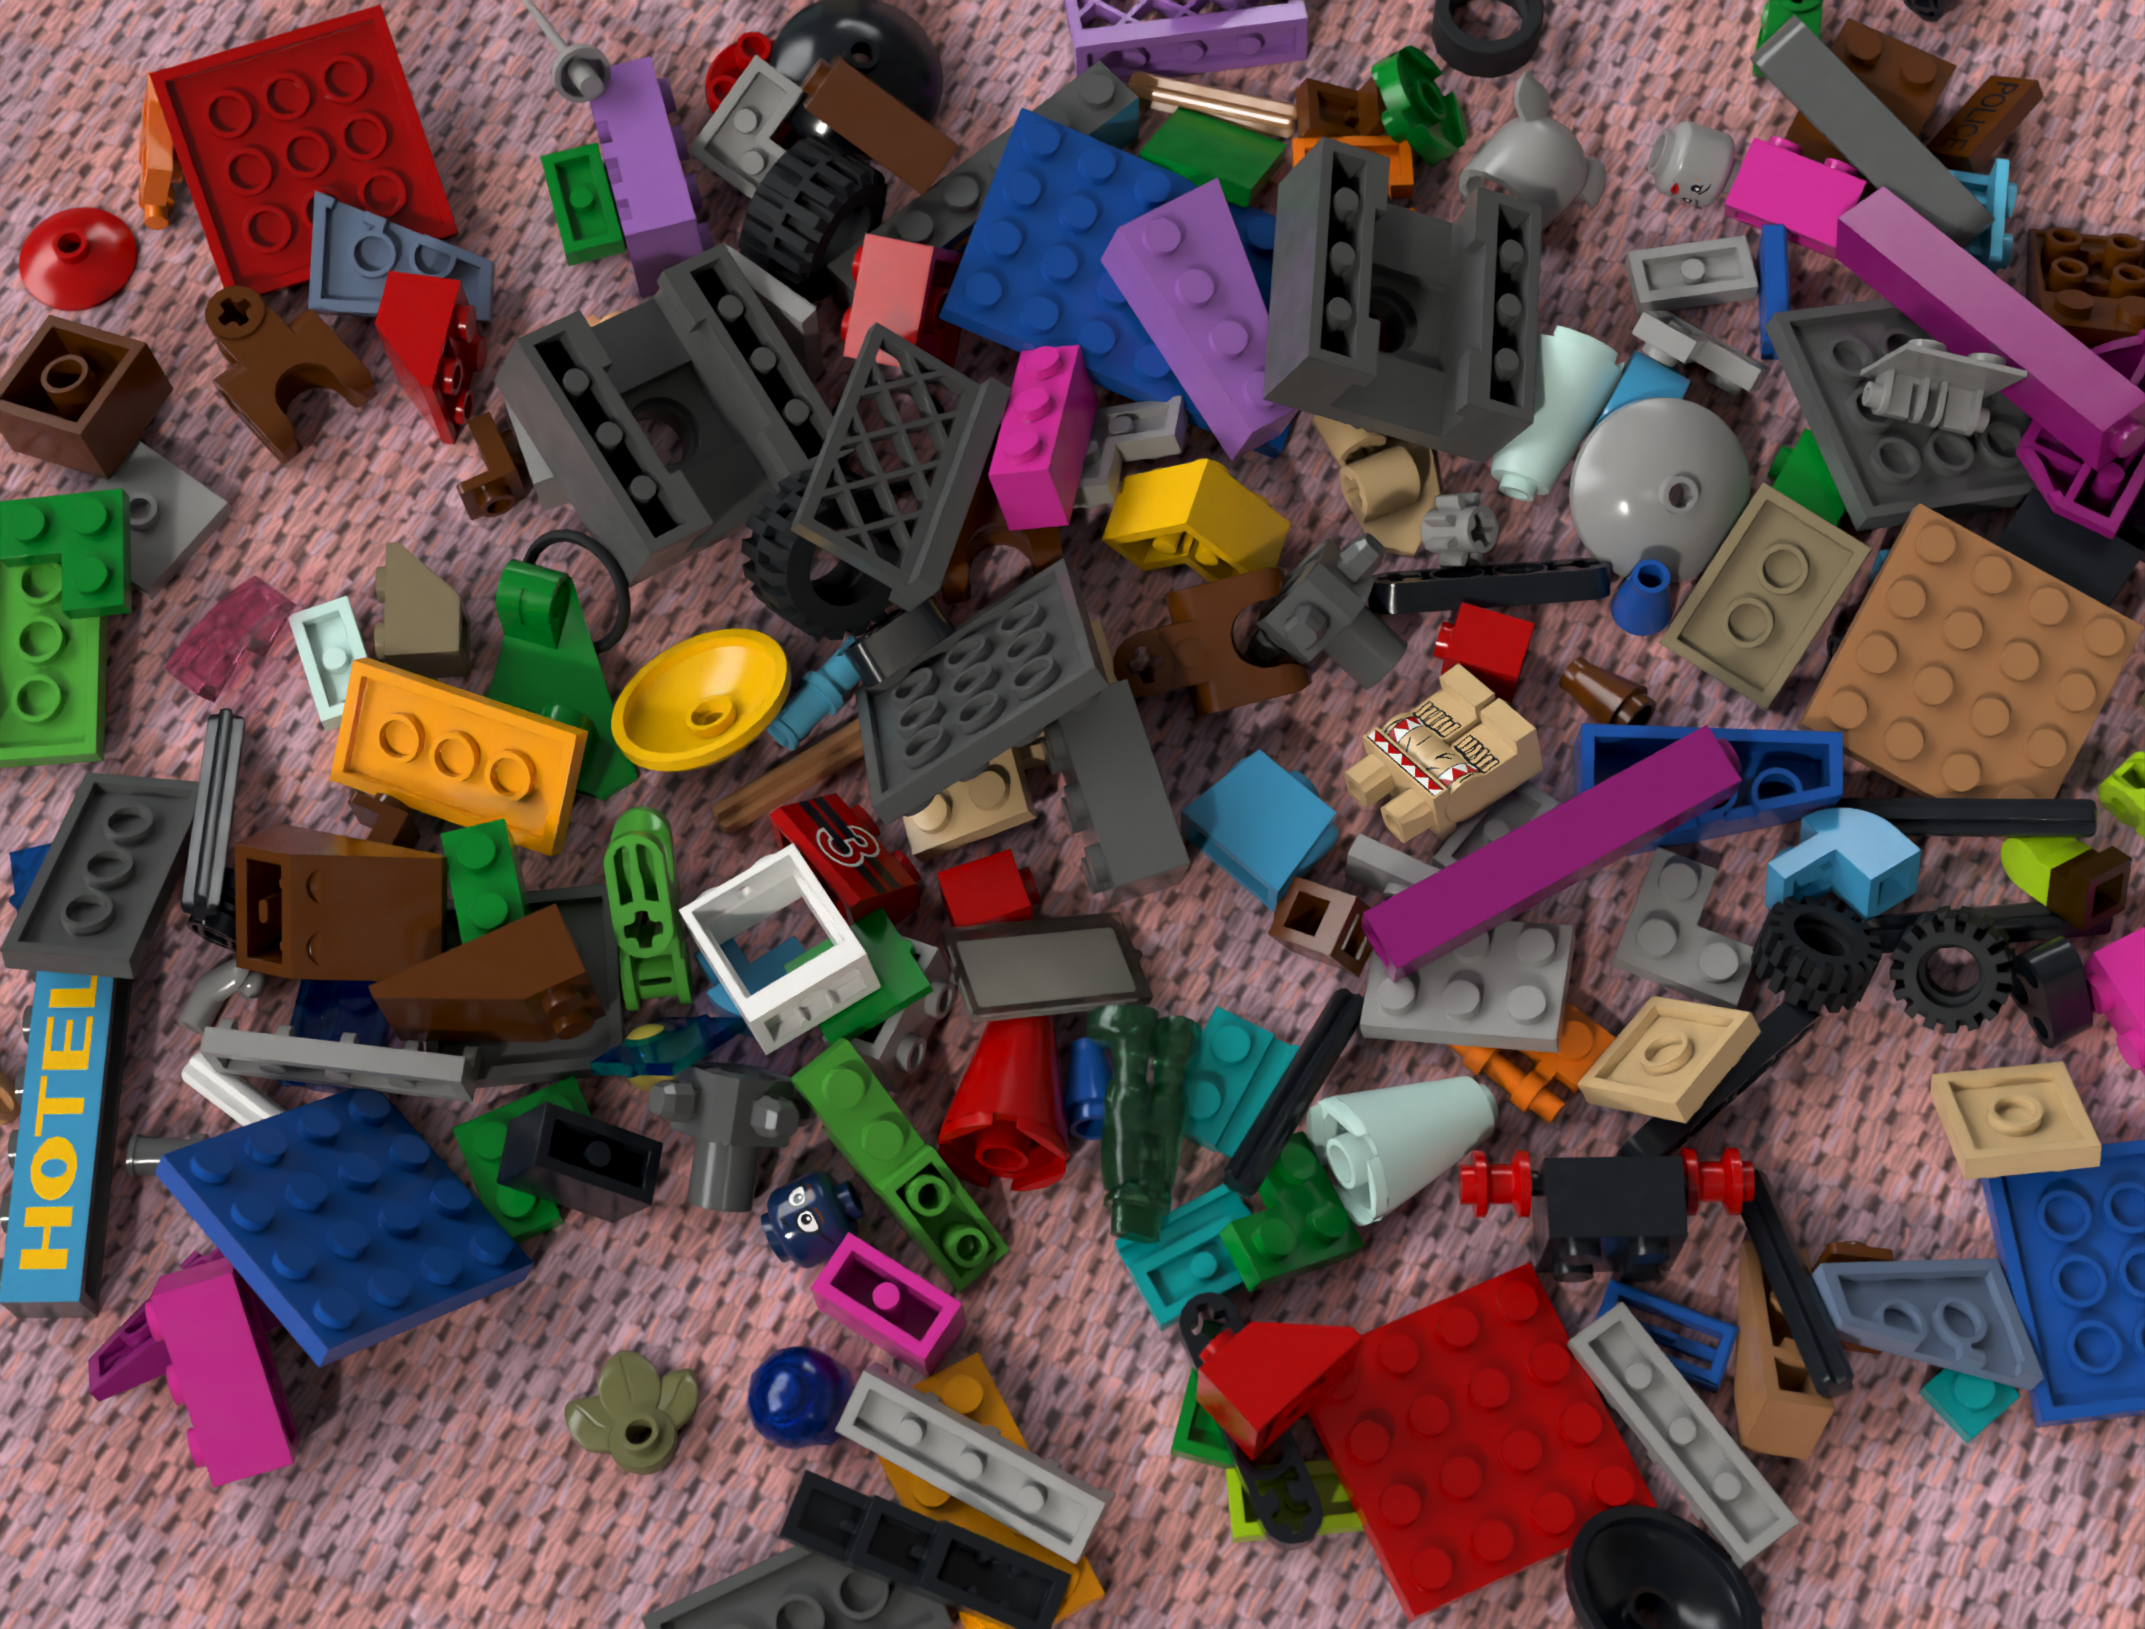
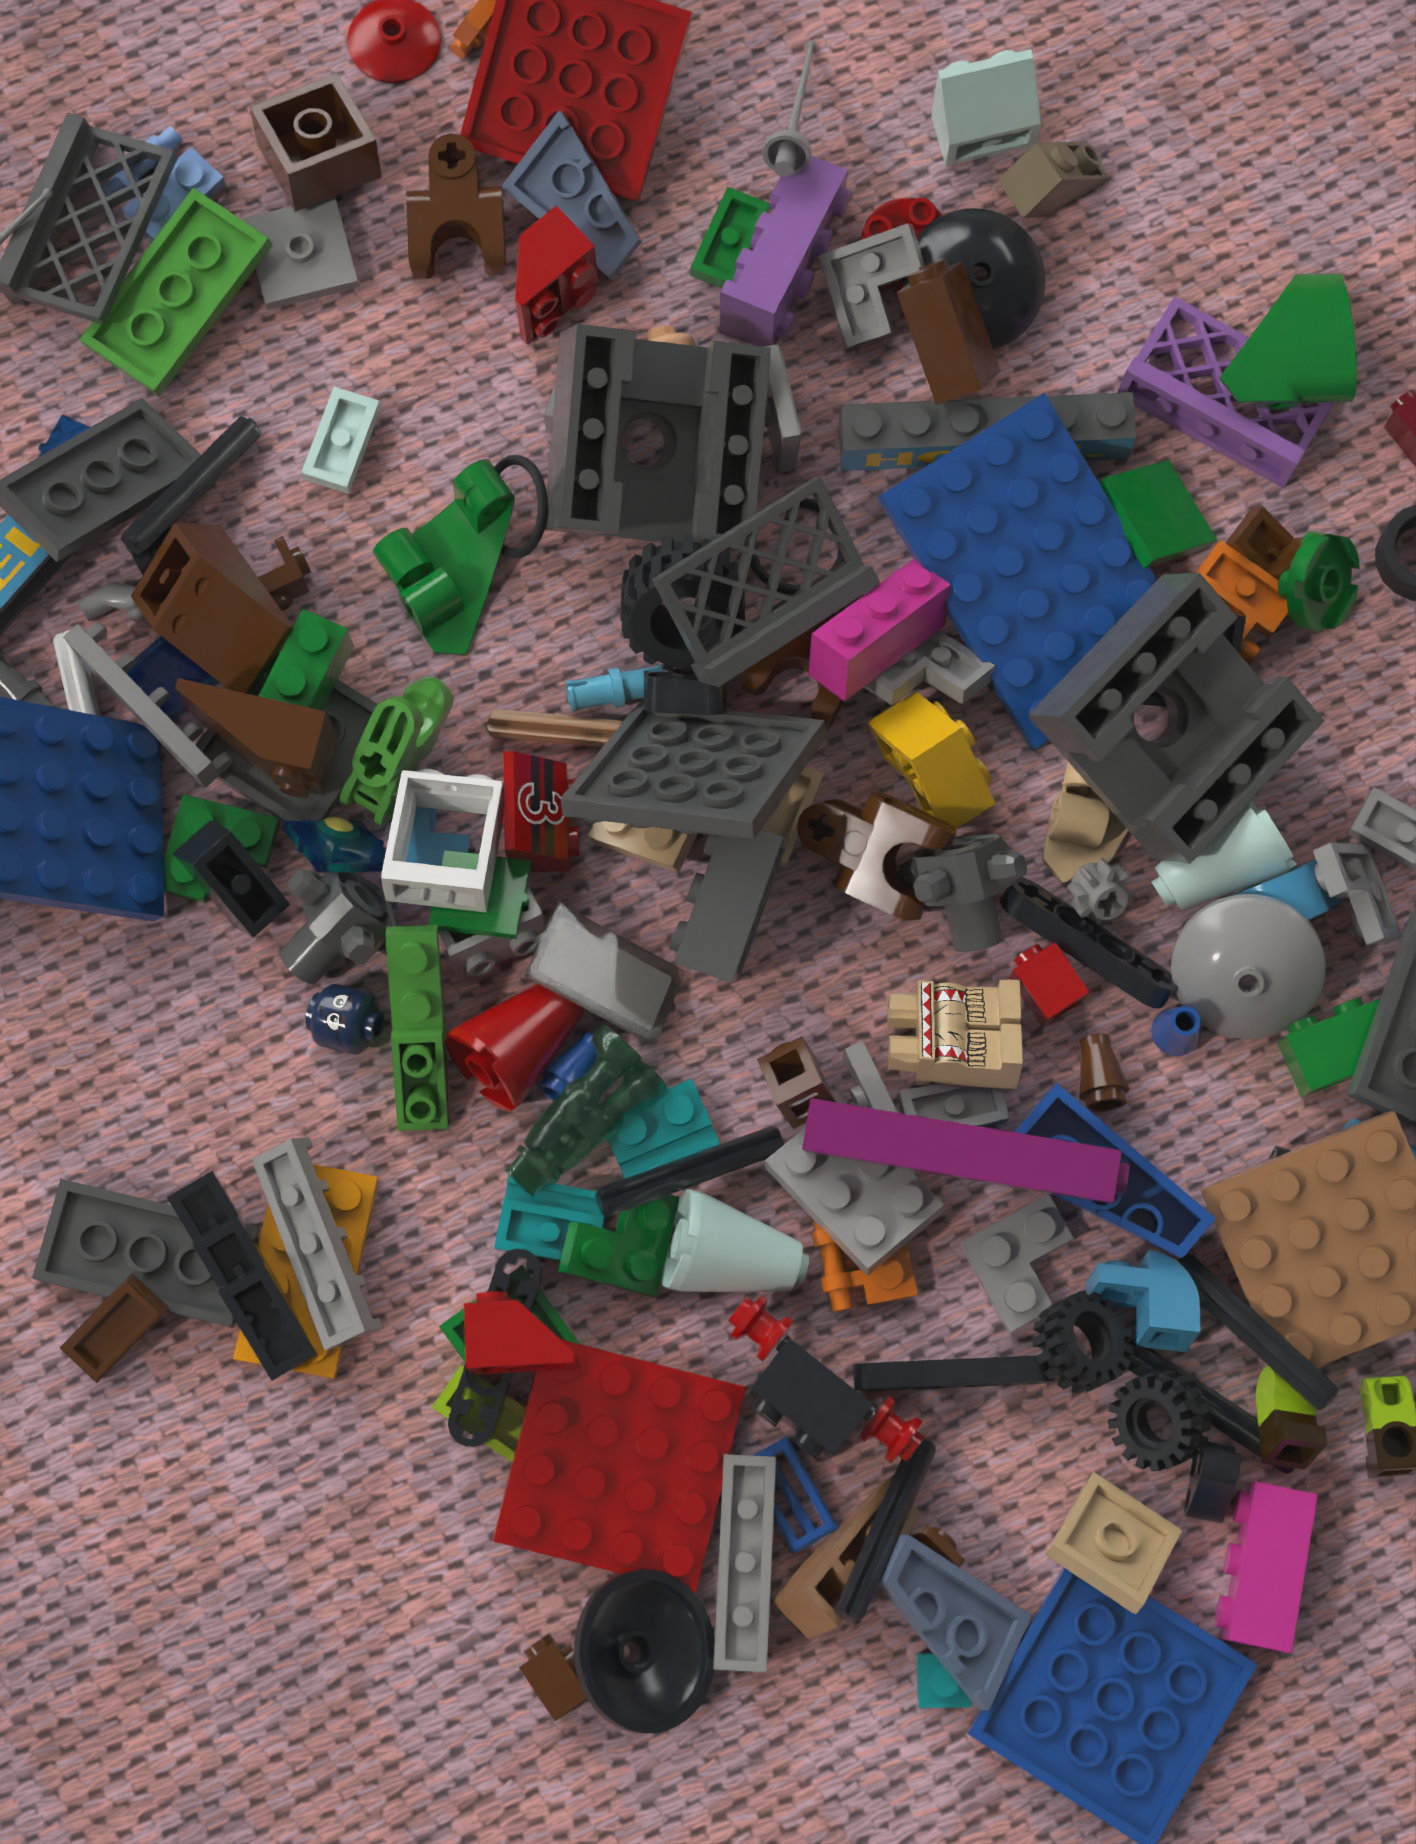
camera: 35 degrees right, 10 degrees up
(84, 533) = (248, 245): green plate -> none
(239, 622) = (296, 369): clear pink slope -> none
(423, 619) = (411, 453): dark tan slope -> none
(458, 754) = (361, 561): light orange plate -> none
(499, 487) = (540, 380): reddish brown bracket -> none
(632, 1403) = (157, 1045): olive plate -> none
(702, 700) = (534, 638): yellow dish -> none
(798, 1397) = (254, 1119): clear blue hair -> none
(810, 213) = (856, 362): black tyre -> none
(889, 1305) = (343, 1108): dark pink brick -> none
(904, 291) = (862, 465): slope -> none
(988, 891) = (610, 899): red brick -> none
(1203, 311) = (1048, 618): medium lavender wedge -> none
(1229, 106) = (1193, 473): medium nougat axle -> none
(1262, 826) = (814, 987): dark azure torso -> none
(1536, 158) = (1357, 682): light grey piece -> none
(1669, 1058) = (931, 1334): tan plate -> none
(1765, 596) = (1254, 1089): dark tan plate -> none

